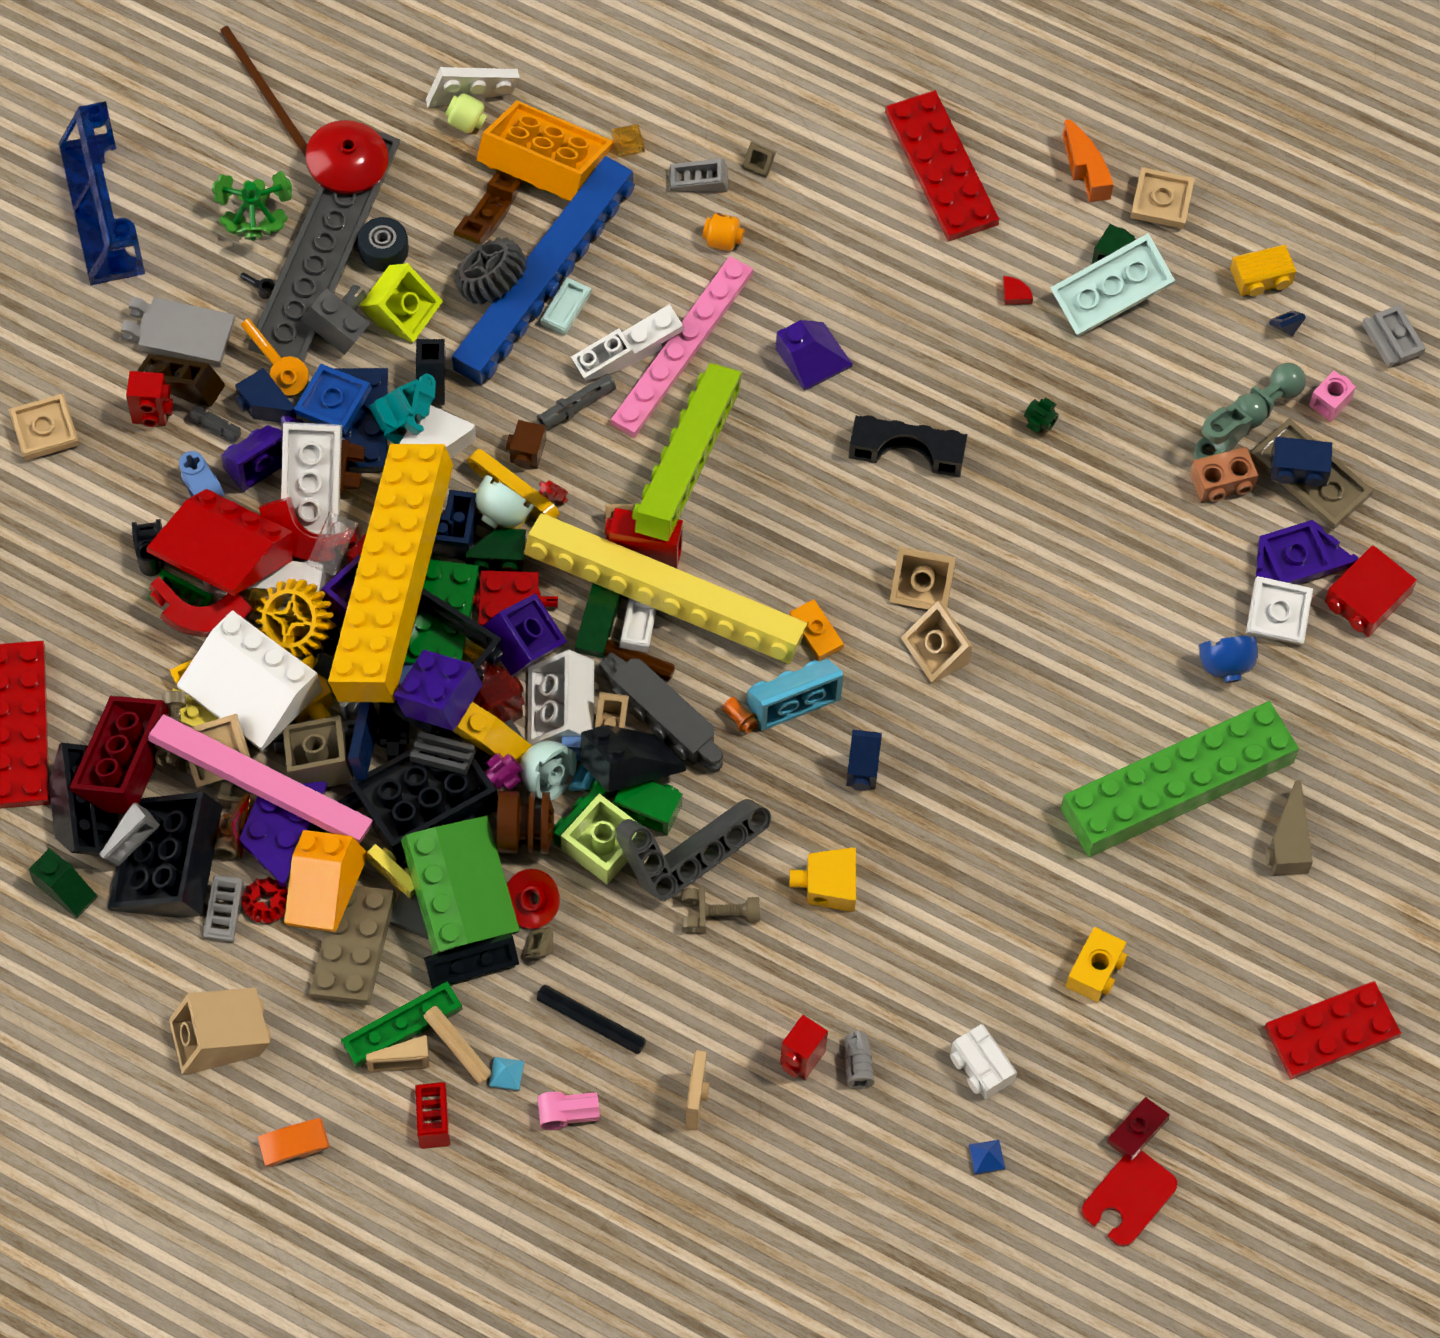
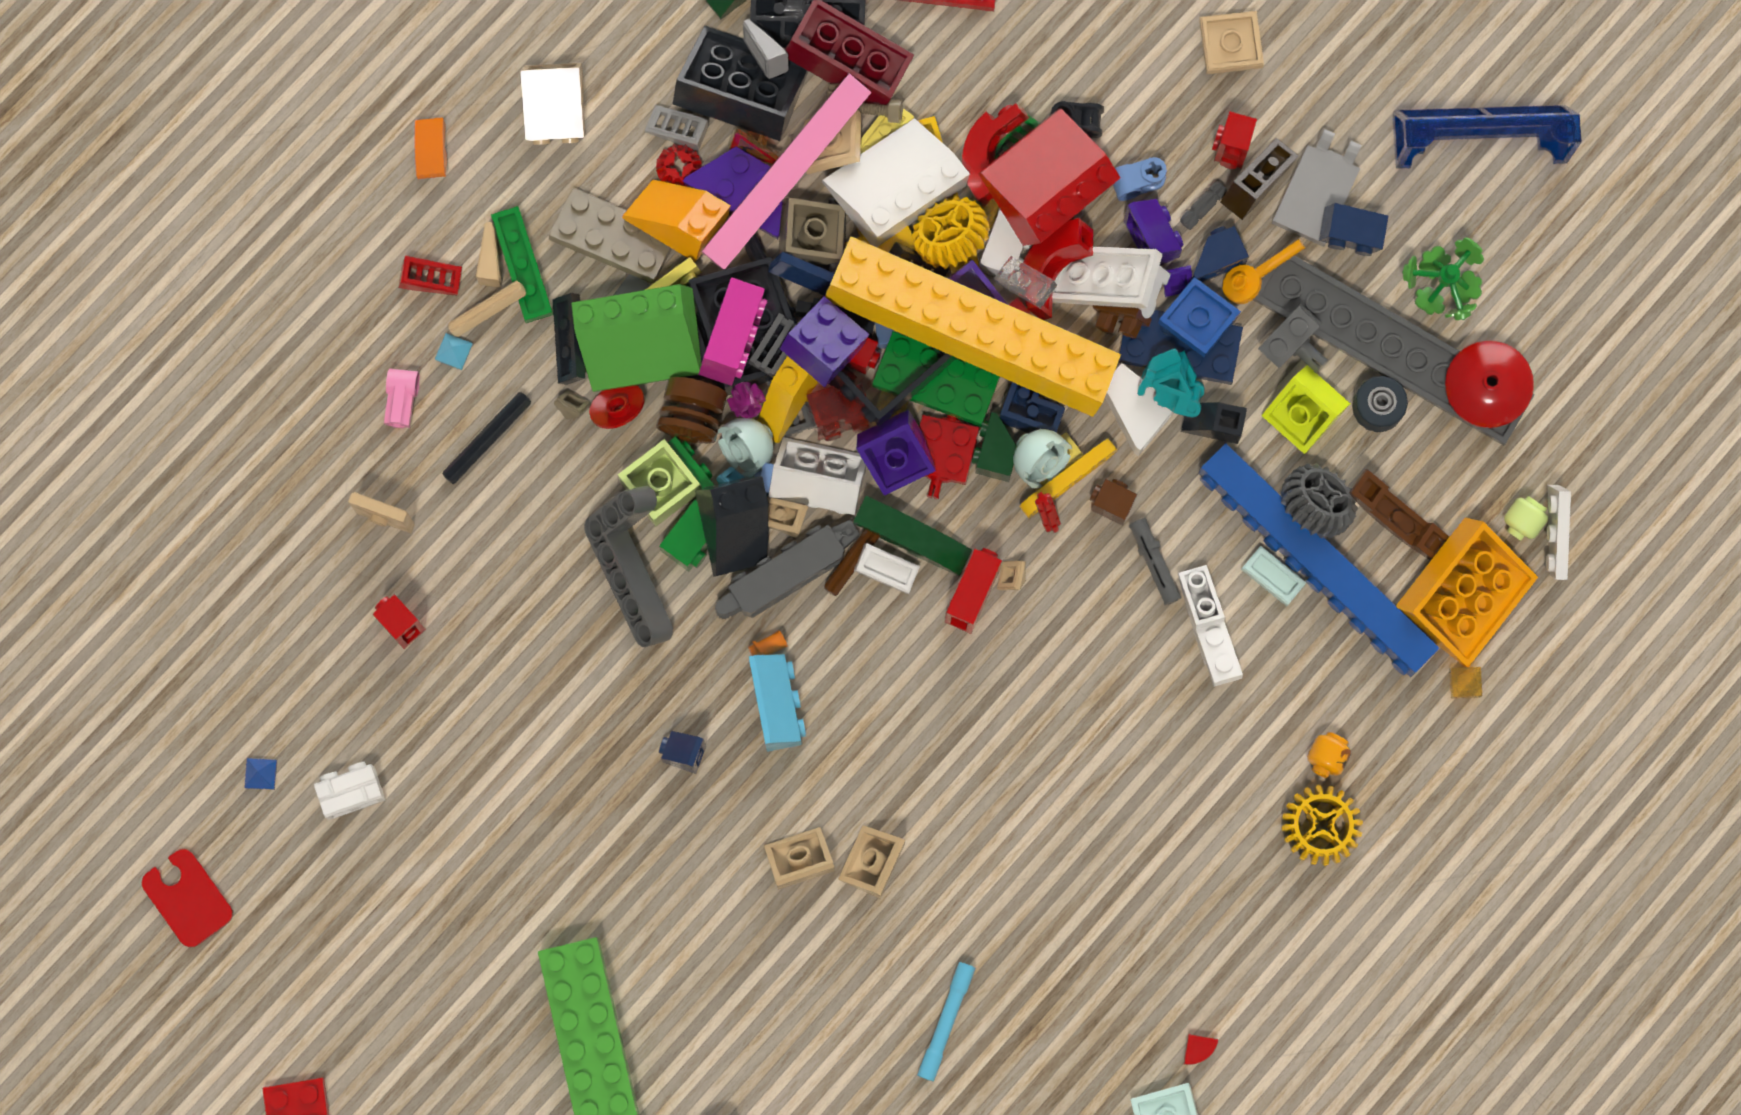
camera: 105 degrees right, 15 degrees up
(217, 289) = (1353, 229): none -> dark blue brick
(259, 284) = (1360, 273): black hand -> none
(265, 90) = (1599, 322): reddish brown piece -> none
(443, 781) = (733, 332): none -> dark pink brick
(665, 588) = (914, 598): light yellow brick -> none
(682, 347) = (1196, 680): bright pink plate -> none
(687, 452) = (1056, 650): lime brick -> none
(695, 924) = (559, 609): dark tan bar -> none
(711, 184) = (1401, 765): light grey slope -> none
(759, 159) = (1414, 814): dark tan slope -> none
(791, 235) = (1331, 836): none -> yellow gear
(811, 352) = (1165, 815): dark purple slope -> none
(819, 632) = (846, 744): light orange plate -> none
(828, 879) = (571, 690): yellow torso -> none
(858, 1061) = (382, 675): light grey hinge -> none
(875, 437) = (1048, 851): black arch -> none
(942, 165) = (1372, 1010): red plate -> none
(1018, 491) = (934, 1054): none -> medium azure piece
(1041, 415) = (1038, 1033): dark green gear -> none
(1098, 948) = (407, 914): yellow brick -> none
(1138, 1128) = (248, 923): dark red plate -> none

